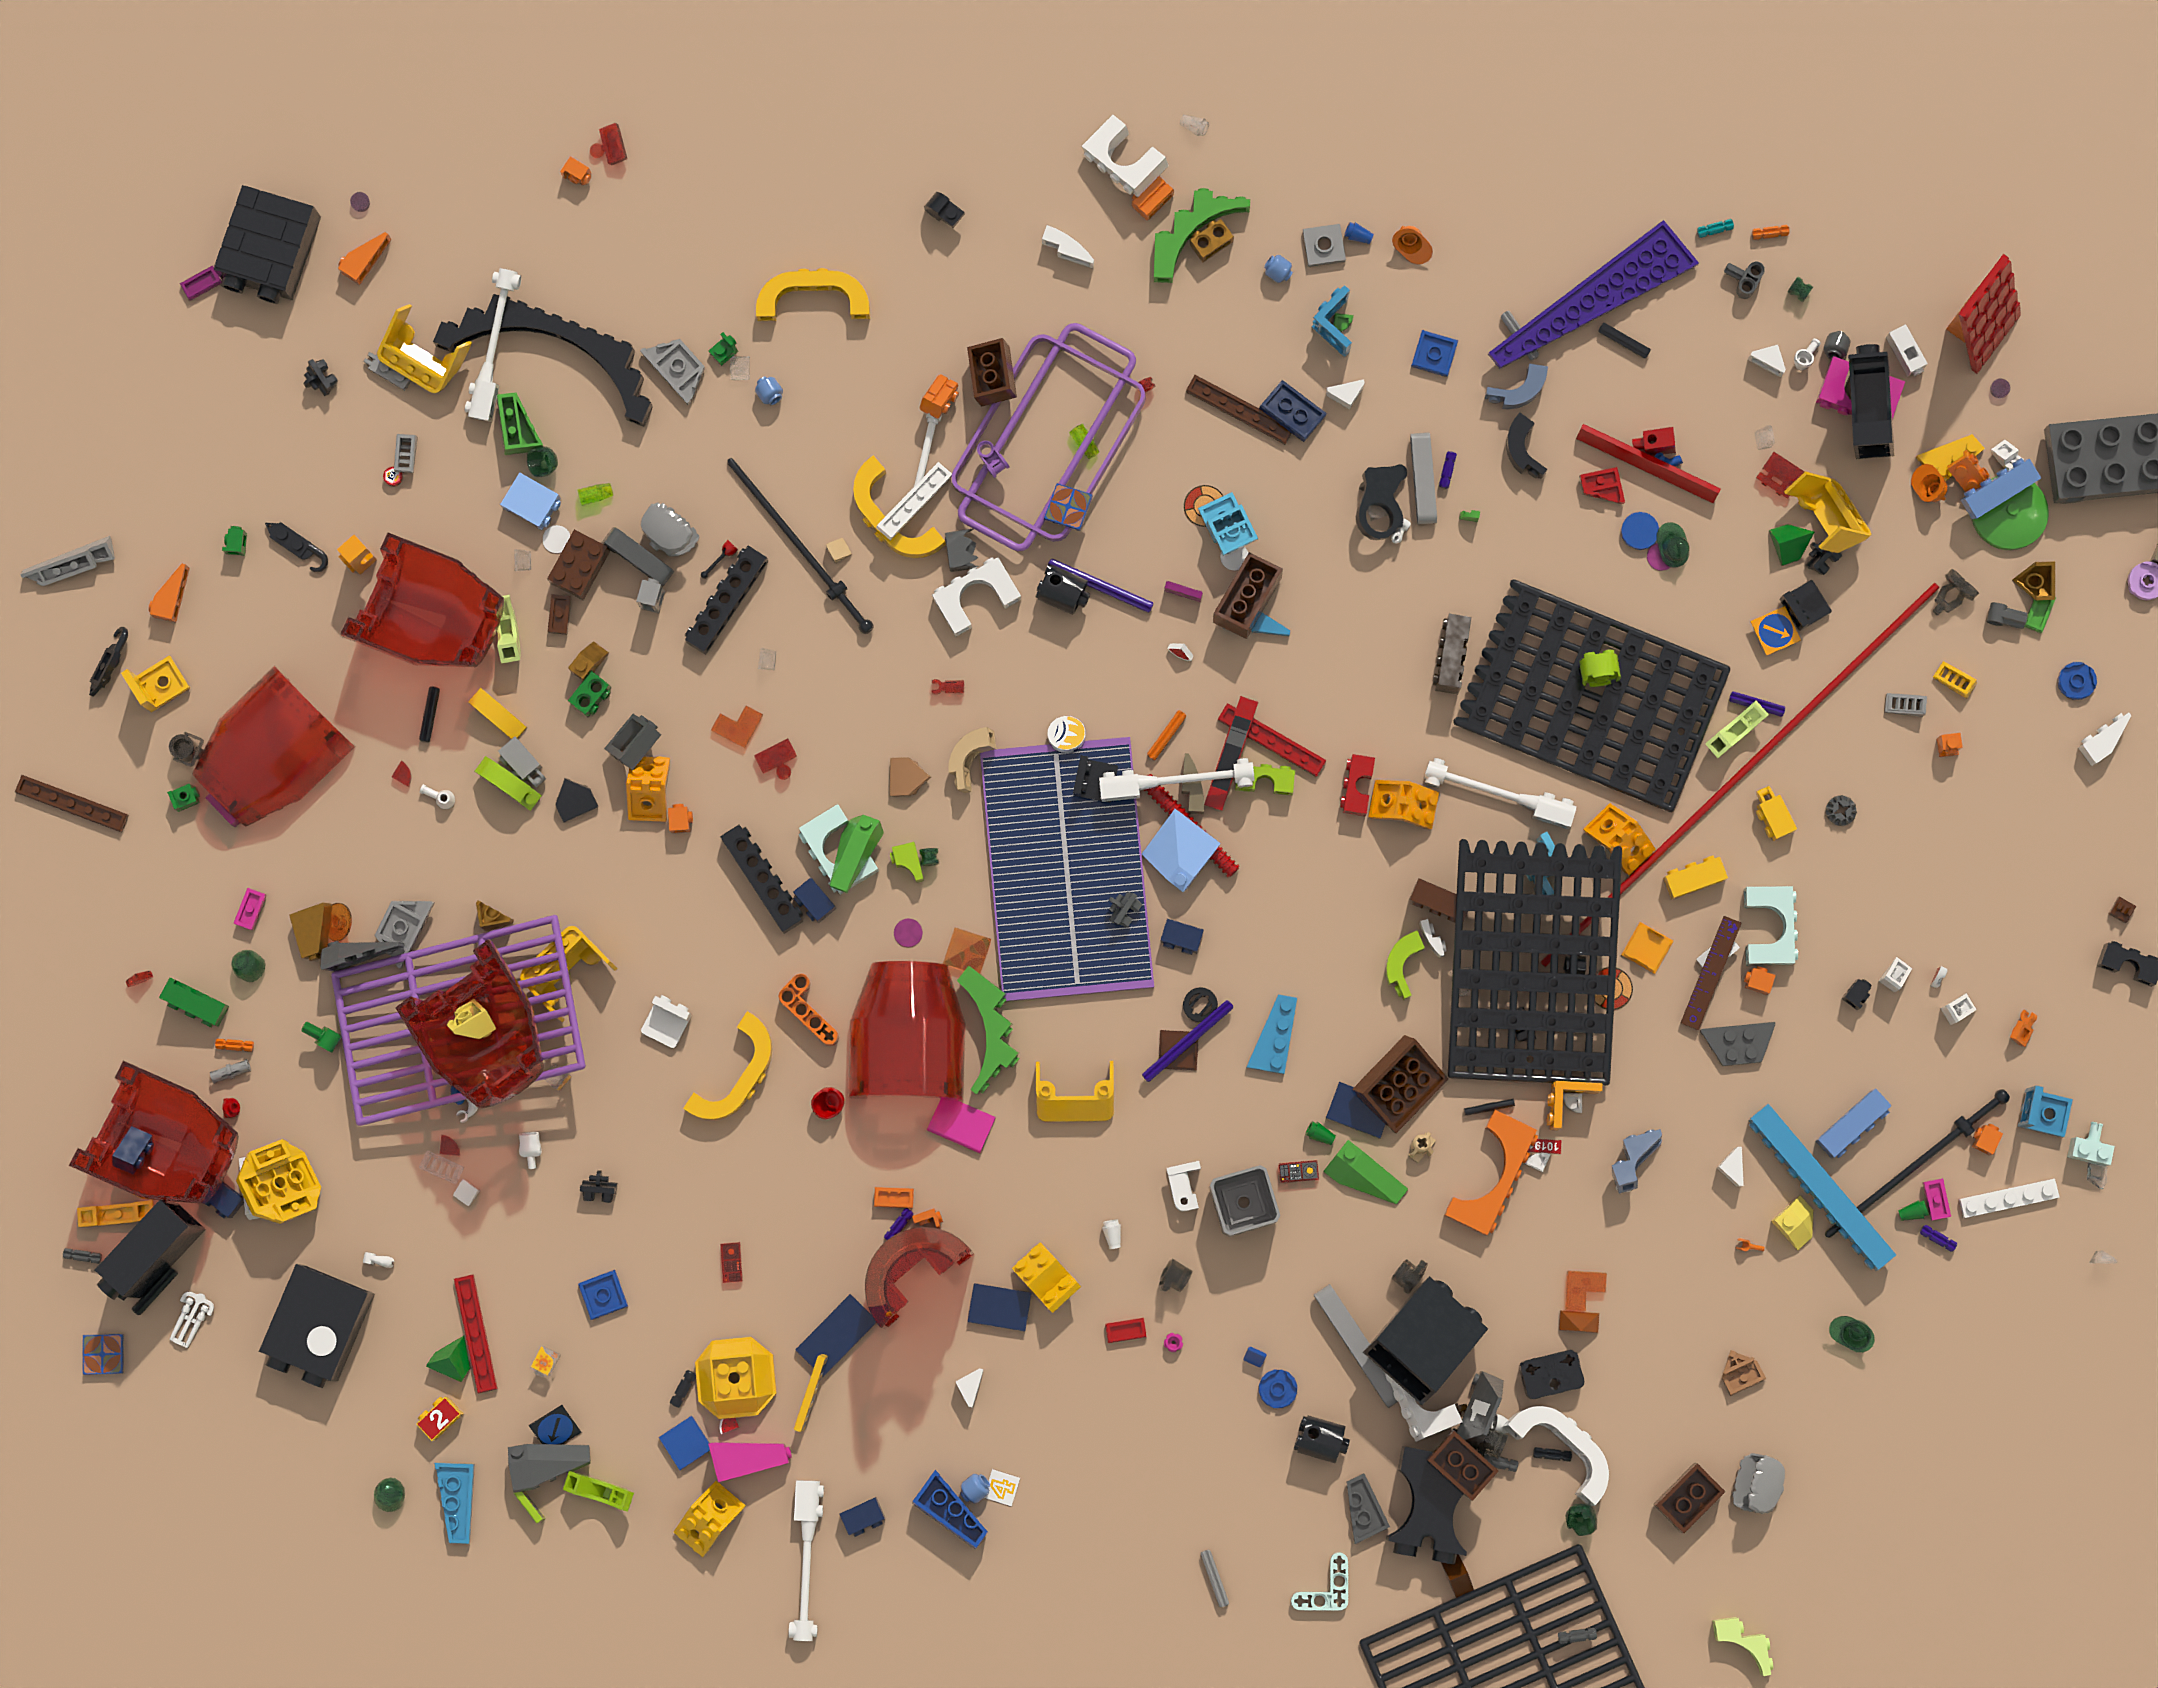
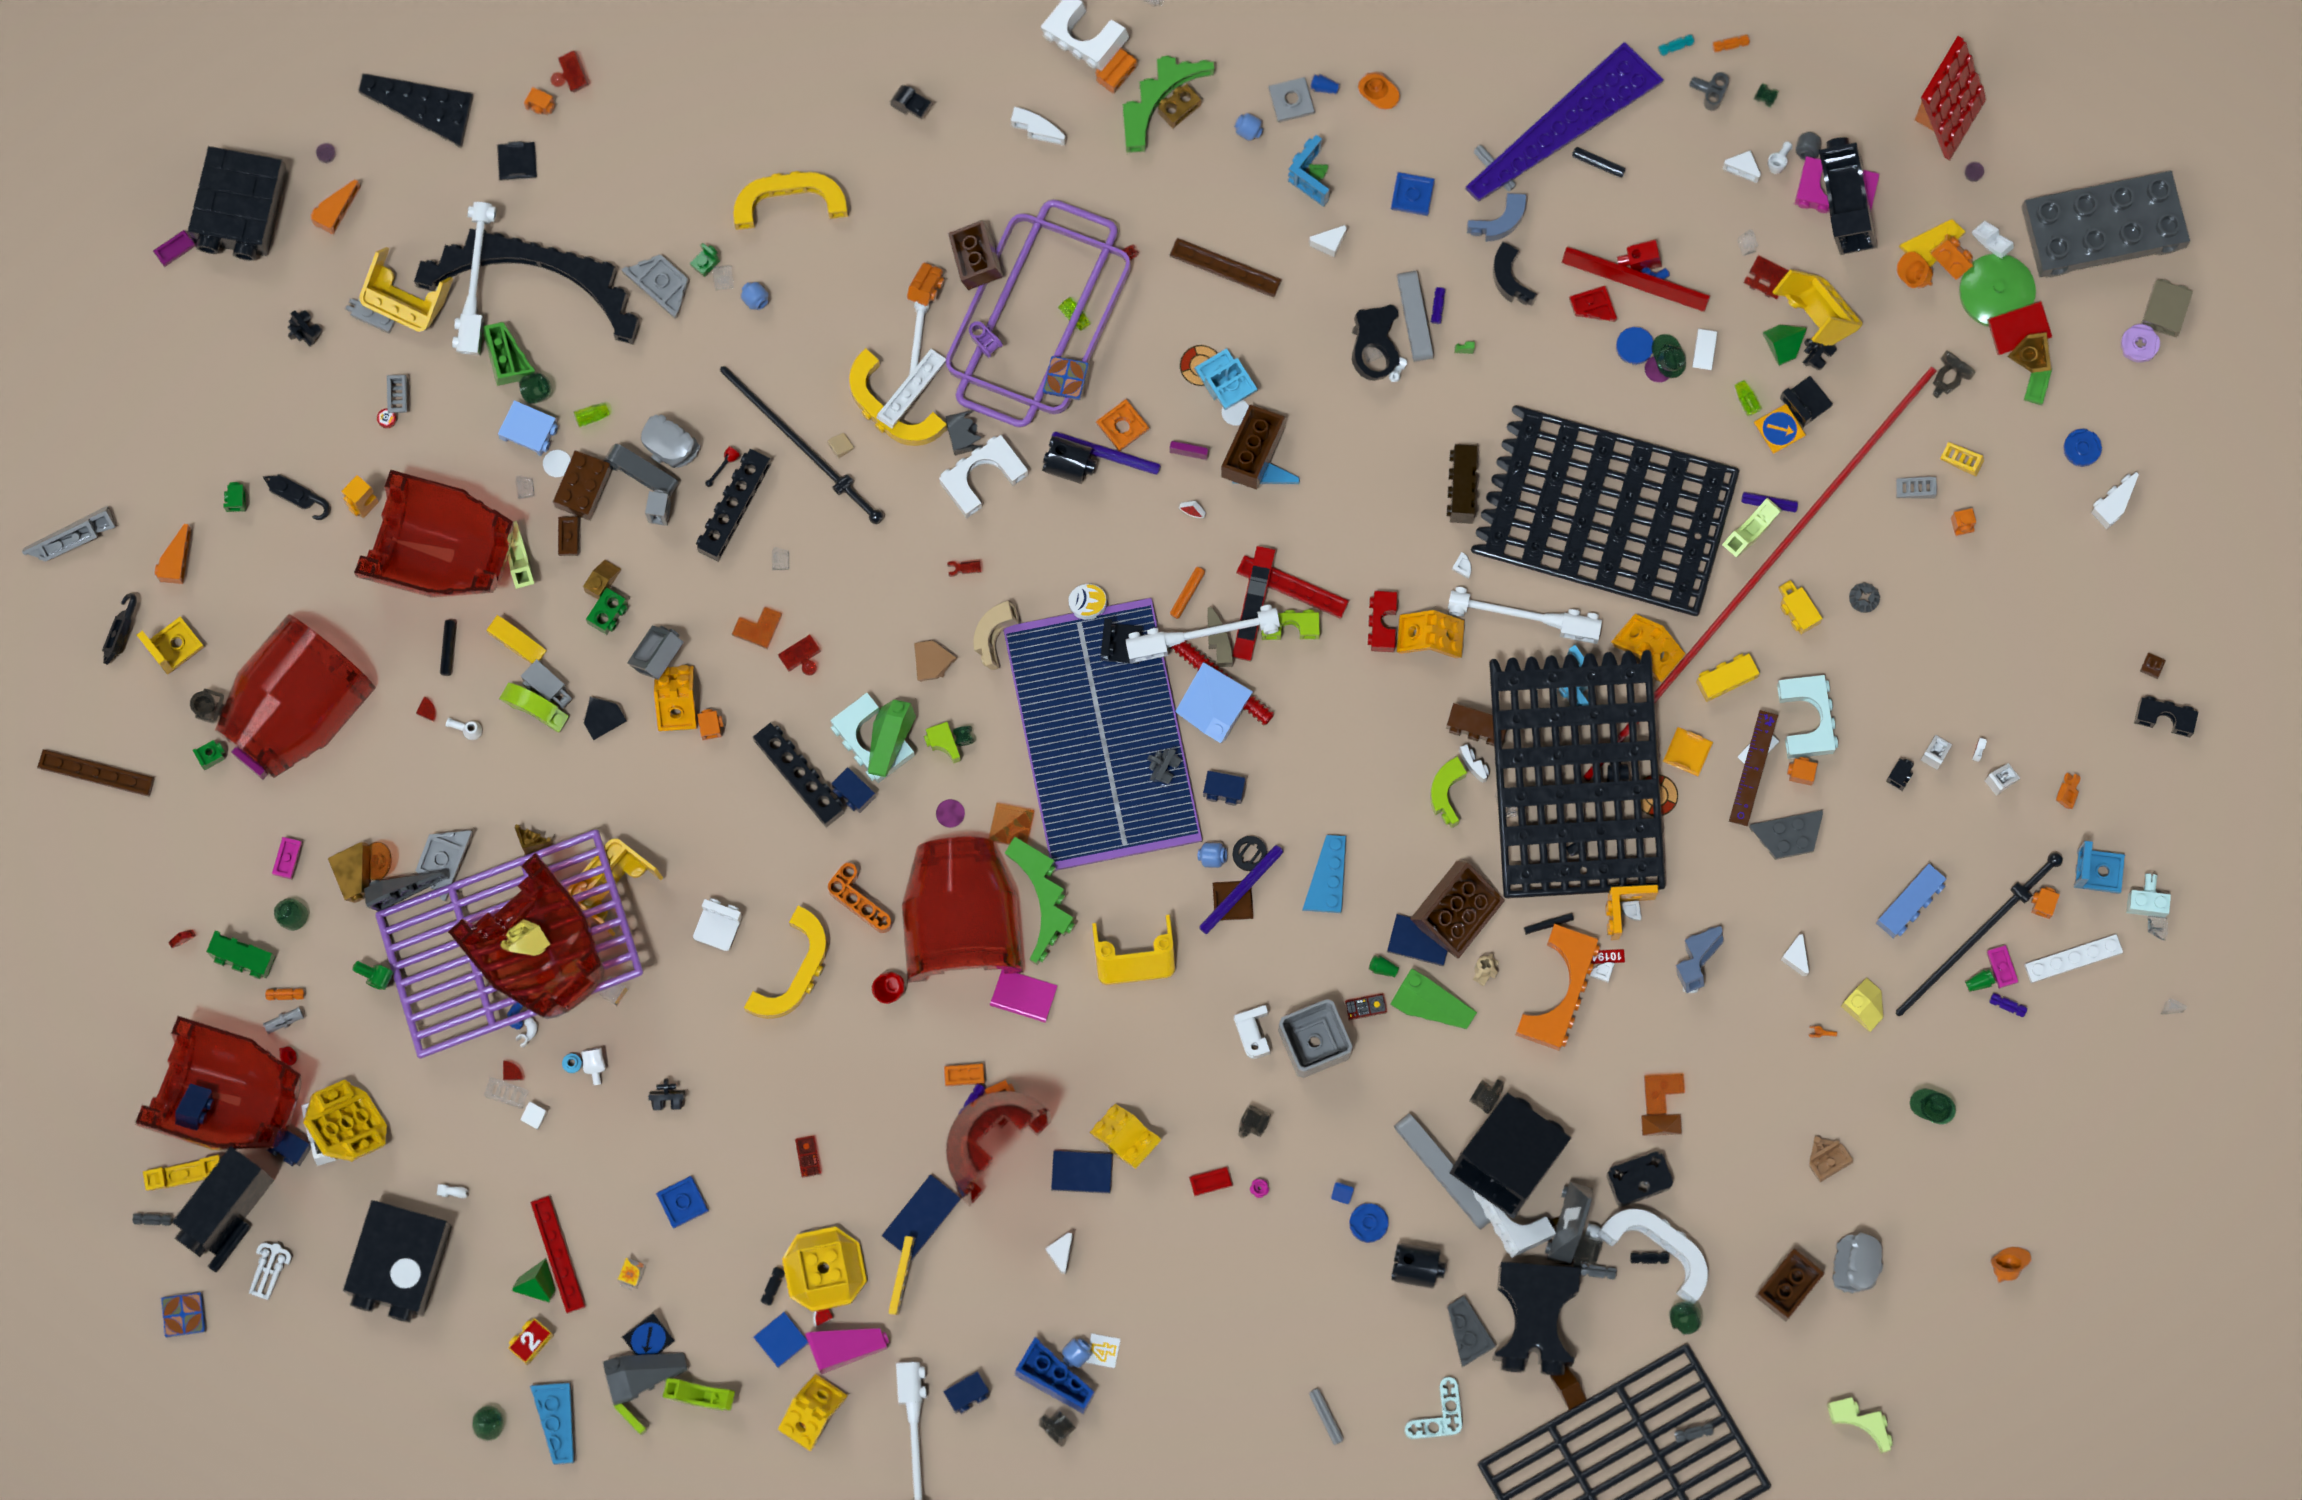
camera: 10 degrees left, 5 degrees down
(467, 165) = (428, 106): none -> black wing
(515, 1144) = (571, 1069): none -> medium azure plate
(548, 228) = (517, 160): none -> black piece
(948, 1561) = (1057, 1427): none -> clear smoke piece
(1112, 1233) = (1187, 1087): white cone -> none
(1124, 546) = (1127, 413): none -> orange piece
(1163, 1003) = (1212, 855): none -> medium blue head
(1292, 411) = (1278, 263): dark blue tile -> none
(1443, 736) = (1462, 566): none -> white tile
(1462, 1465) = (1560, 1271): reddish brown brick -> none
(1599, 668) = (1609, 481): lime brick -> none
(1709, 541) = (1704, 349): none -> white slope
(1745, 590) = (1744, 393): none -> clear neon green hinge
(1822, 1188) = (1886, 966): dark azure brick -> none
(1906, 351) = (1878, 144): white brick -> none
(1911, 1499) = (2010, 1263): none -> orange piece
(2000, 488) = (1985, 267): medium blue brick -> none
(2001, 615) = (2000, 390): dark grey piece -> none
(2023, 550) = (2013, 326): none -> red tile

